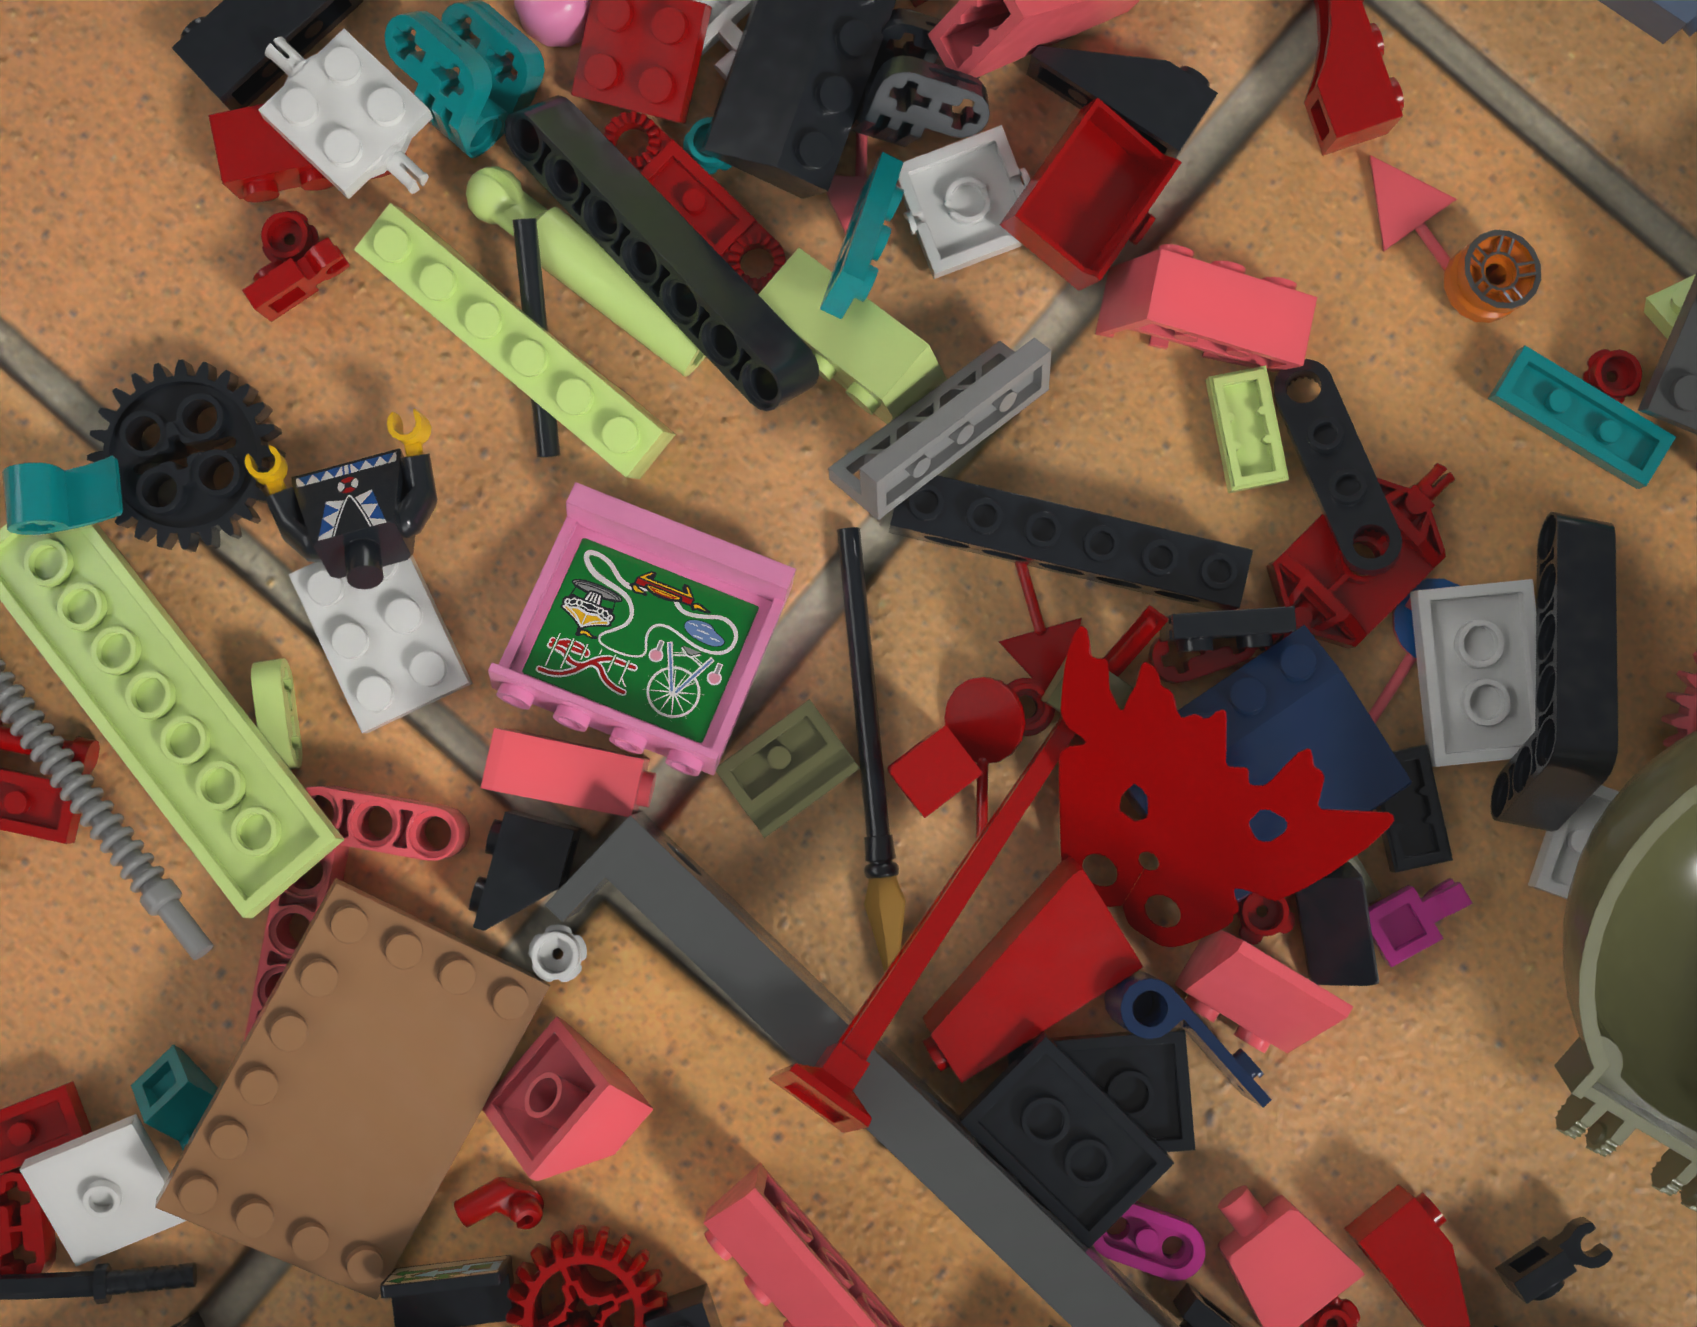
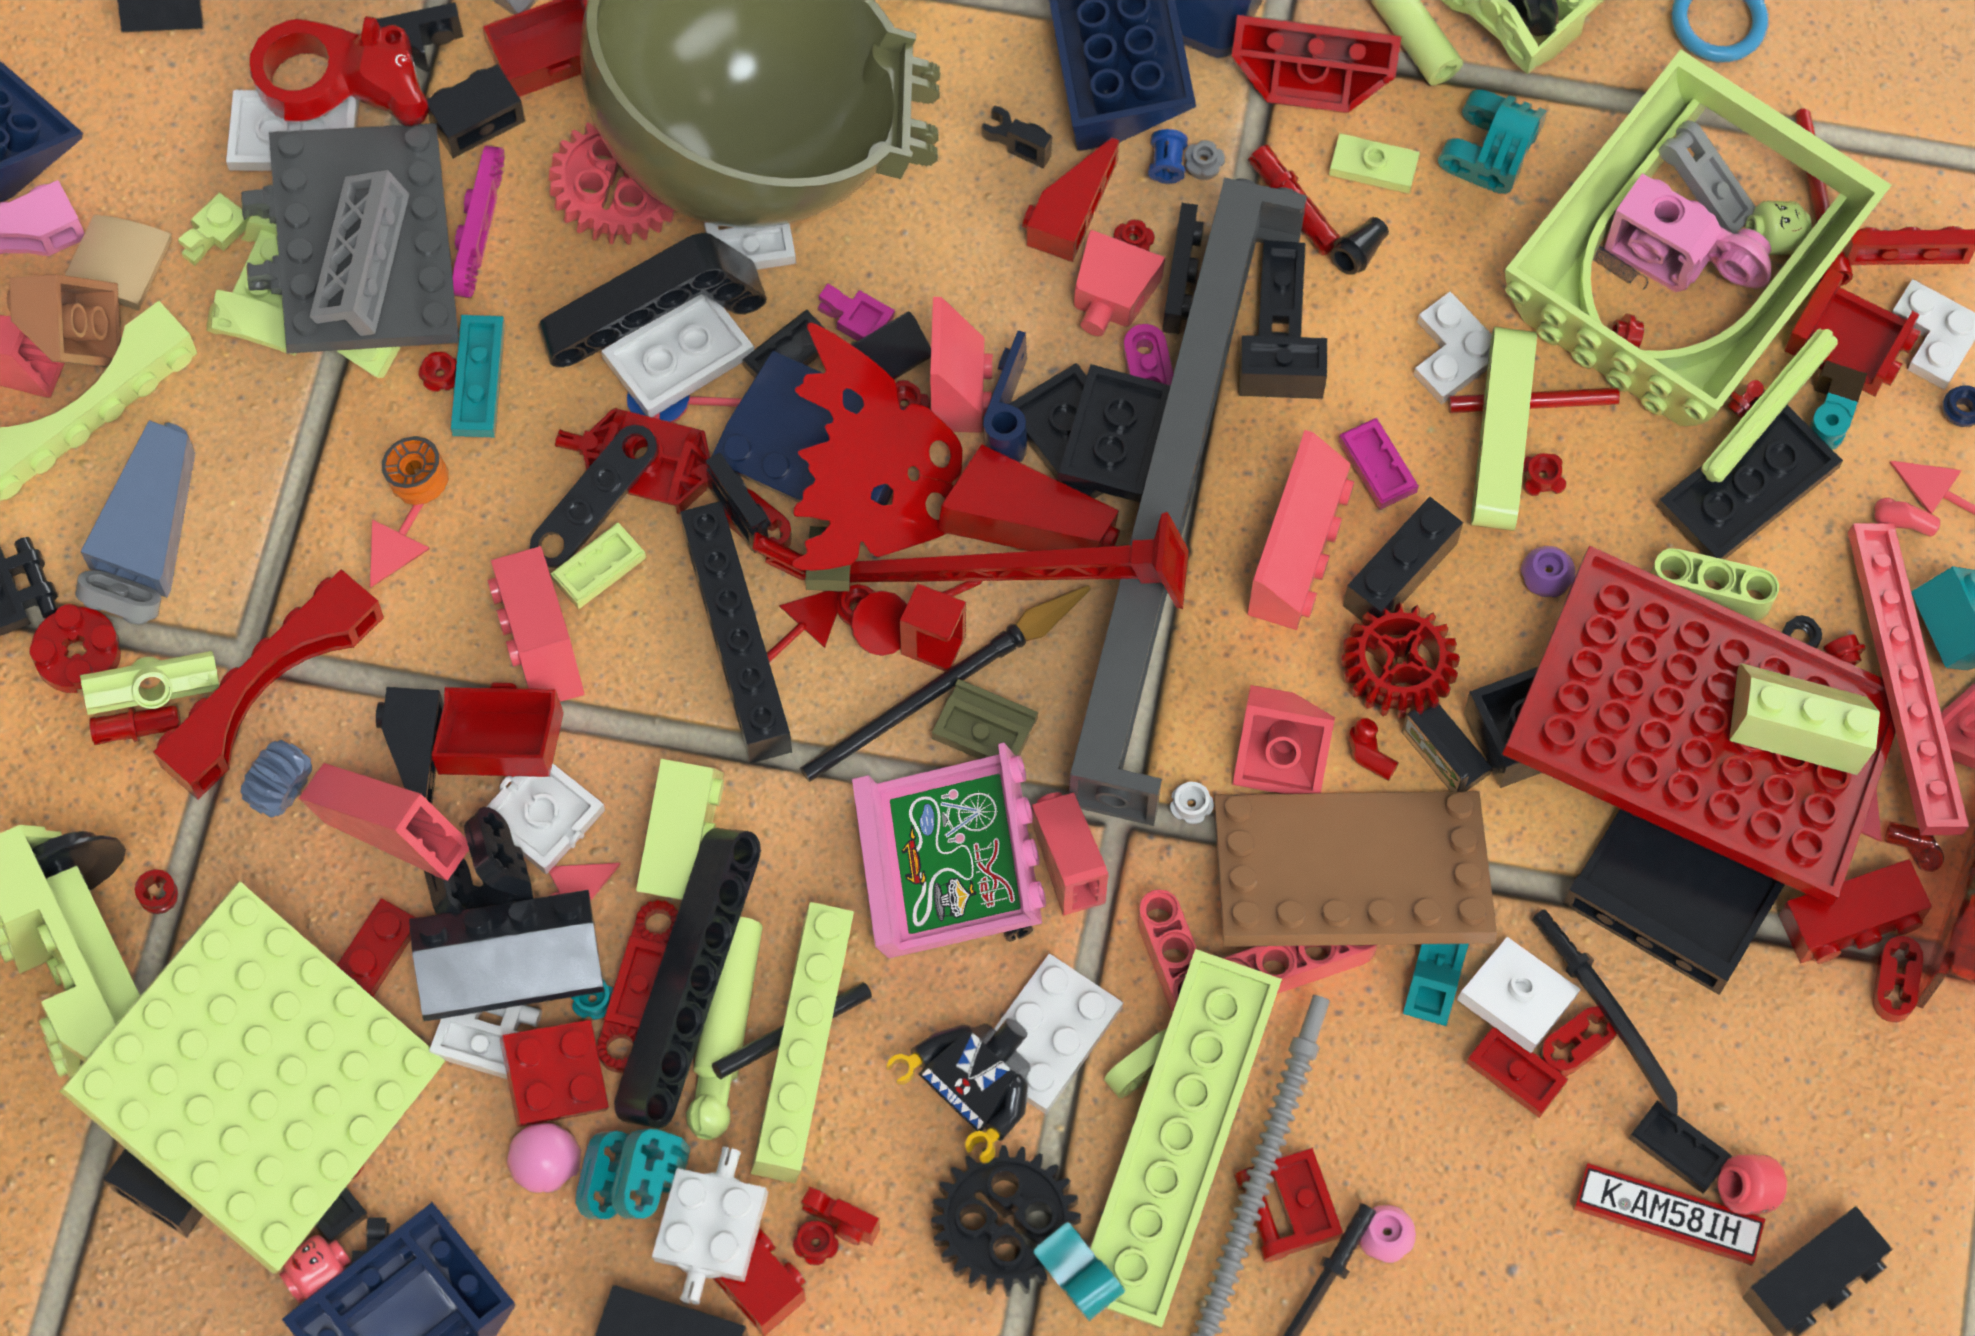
camera: 120 degrees left, 20 degrees down
(527, 864) = (1147, 848): black slope -> none
(864, 237) = (608, 846): teal plate -> none
(943, 426) = (703, 723): light grey fence -> none

